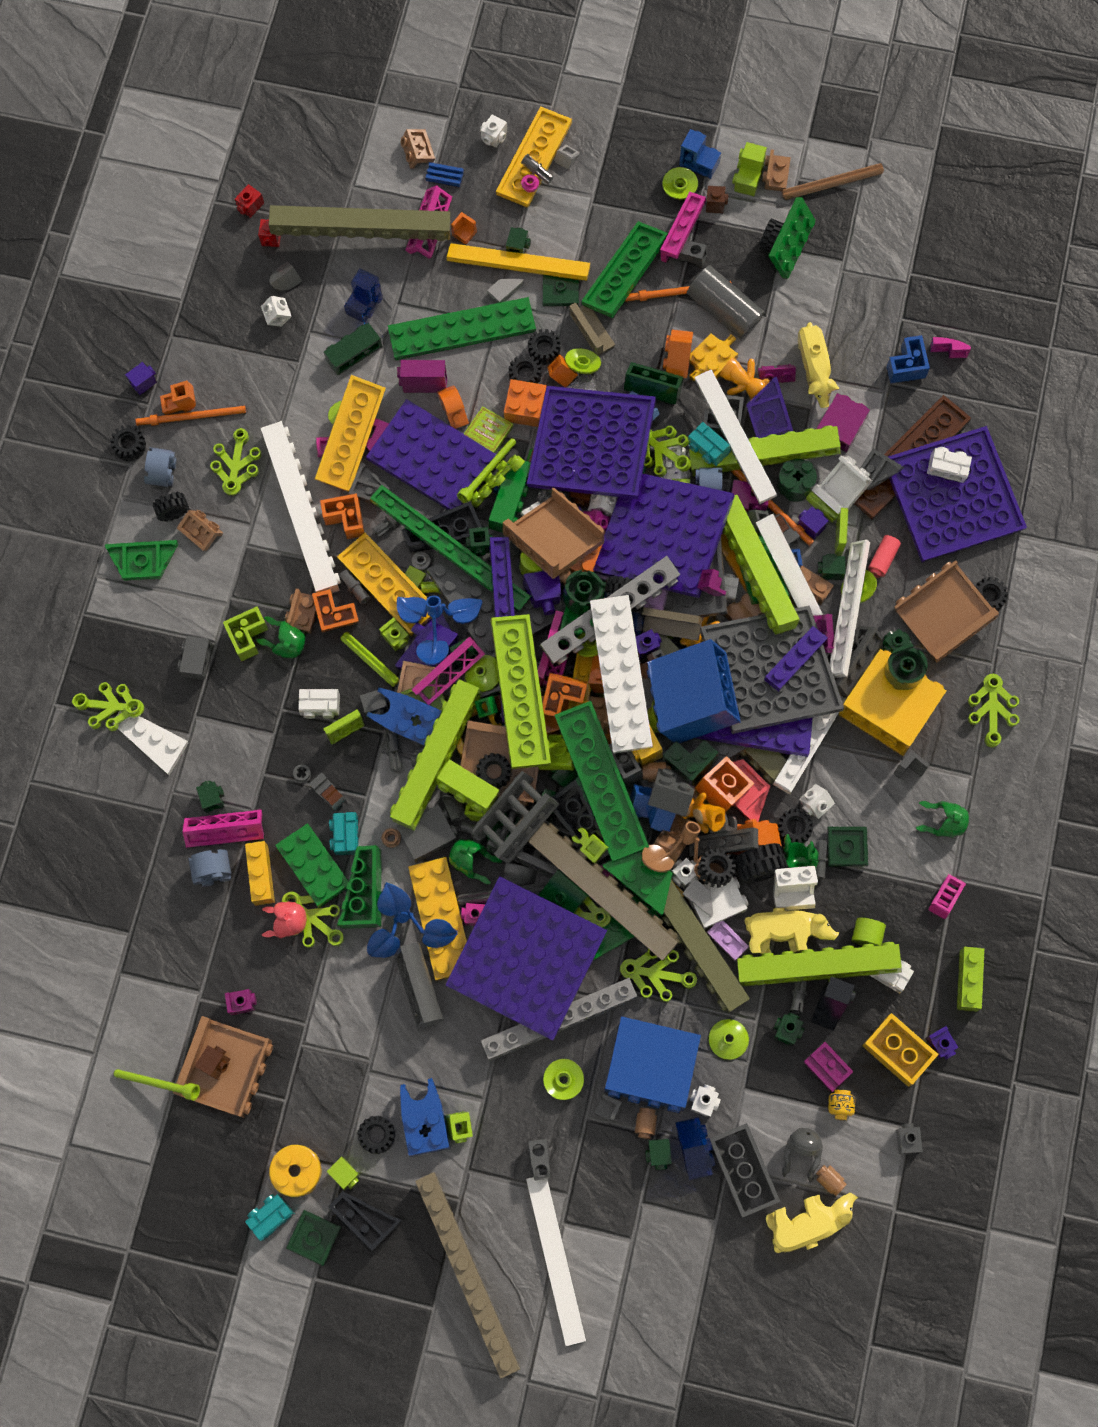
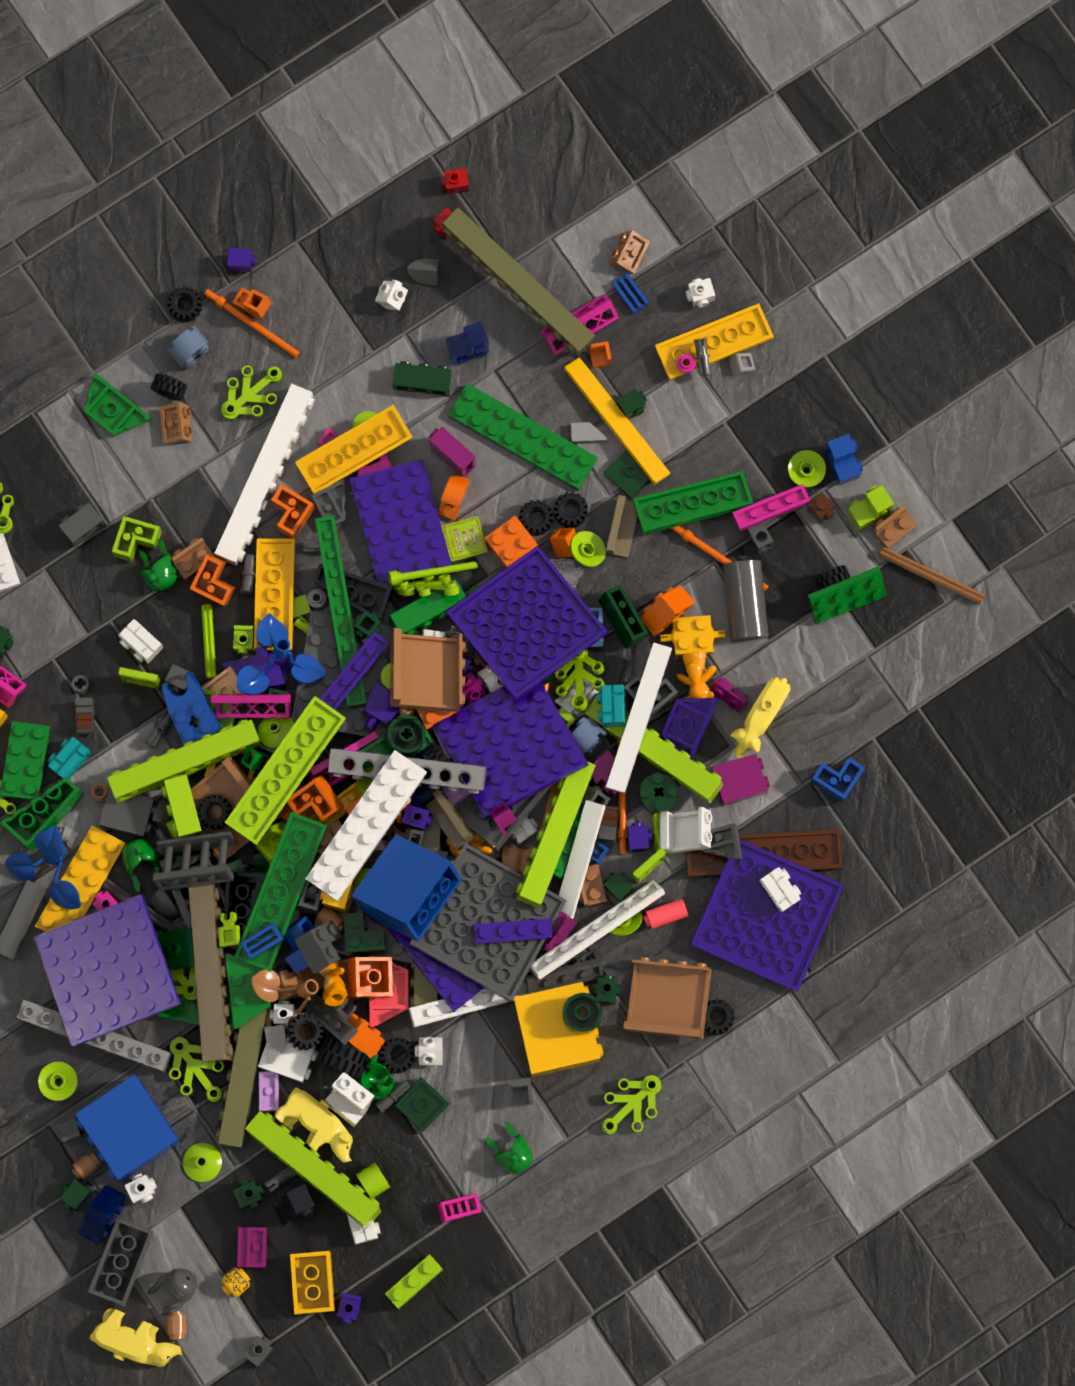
camera: 40 degrees right, 5 degrees up
(618, 845) = (276, 933): none -> blue tile
(955, 348) = (887, 801): dark pink slope -> none

